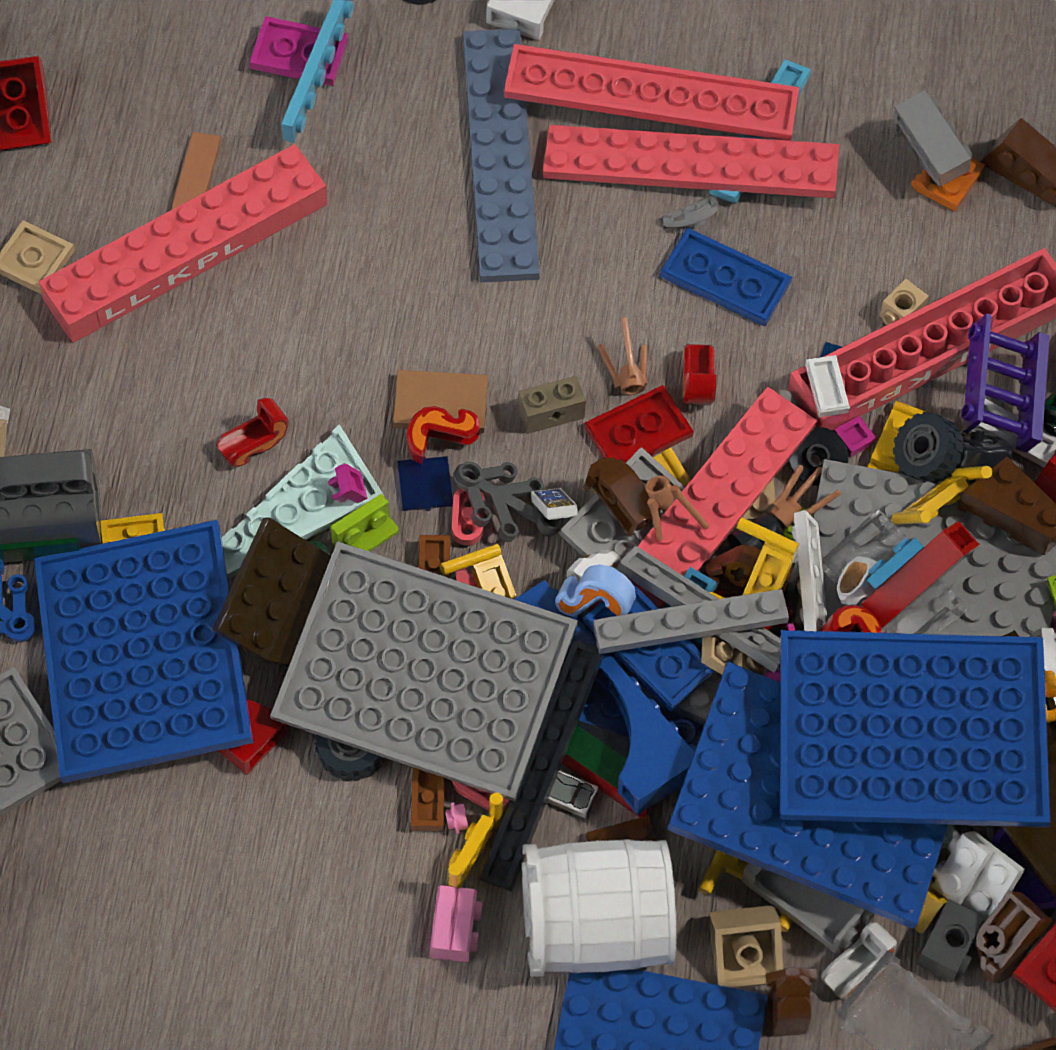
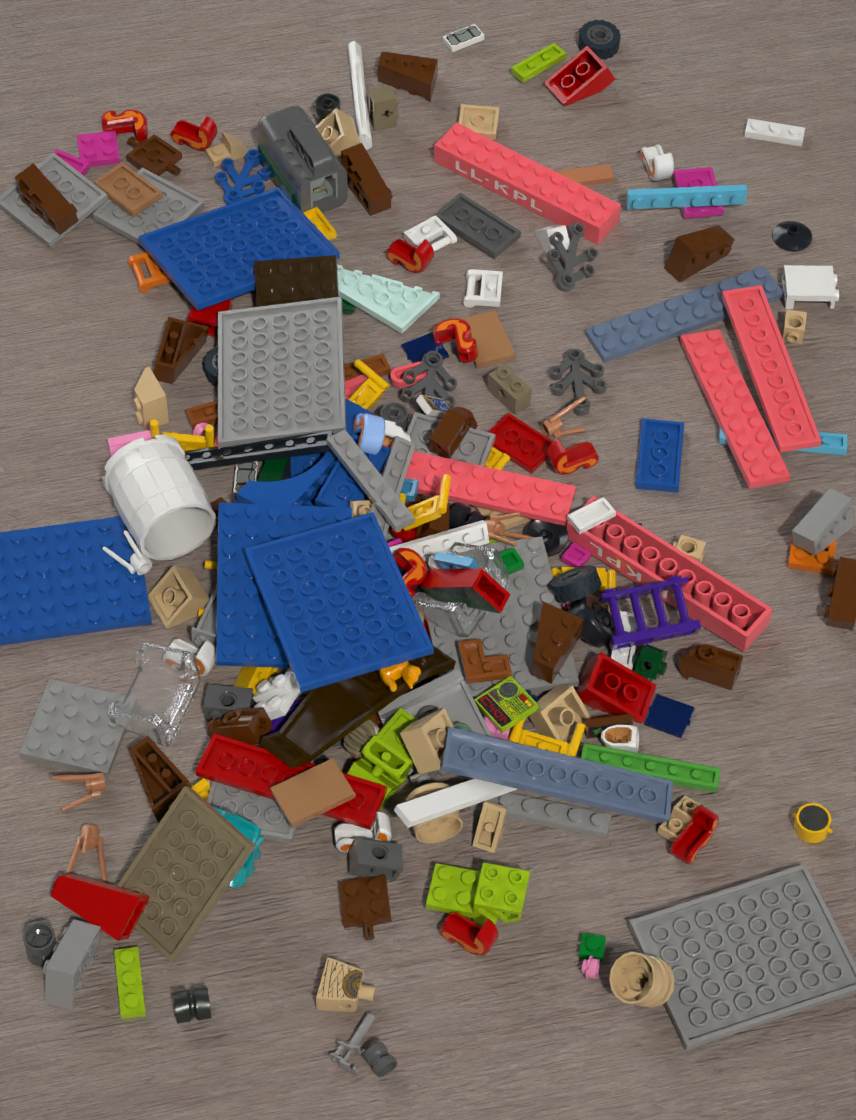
camera: 70 degrees right, 10 degrees down
(108, 435) = (365, 180): none -> reddish brown wedge
(123, 781) = (158, 276): none -> orange plate
(214, 401) = (430, 231): none -> white plate
(226, 76) = (658, 165): none -> white animal
(231, 332) = (478, 225): none -> dark grey plate
(295, 800) = (178, 348): none -> reddish brown wedge
(303, 249) = (544, 236): none -> white slope
(350, 484) = (396, 305): dark pink tile -> none
(352, 244) = (569, 258): none -> dark grey plant
(354, 360) = (490, 288): none -> white plate
(366, 526) = (373, 325): lime bracket -> none
(383, 866) = (150, 400): none -> tan slope
(412, 91) = (697, 251): none -> reddish brown wedge
(550, 562) = (397, 413): none -> dark grey wheel
(559, 318) = (575, 358): none -> dark grey plant
(585, 31) = (794, 326): none -> tan brick
(662, 496) = (452, 439): nougat plant -> none
(675, 975) = (139, 561): none -> white plant
(692, 214) = (697, 423): light grey plate -> none
(790, 1000) = (144, 621): reddish brown piece -> none
(863, 506) = (512, 560): none -> green plate
(943, 494) = (528, 593): yellow plate -> none
(1017, 611) = (480, 668): none -> dark orange plate

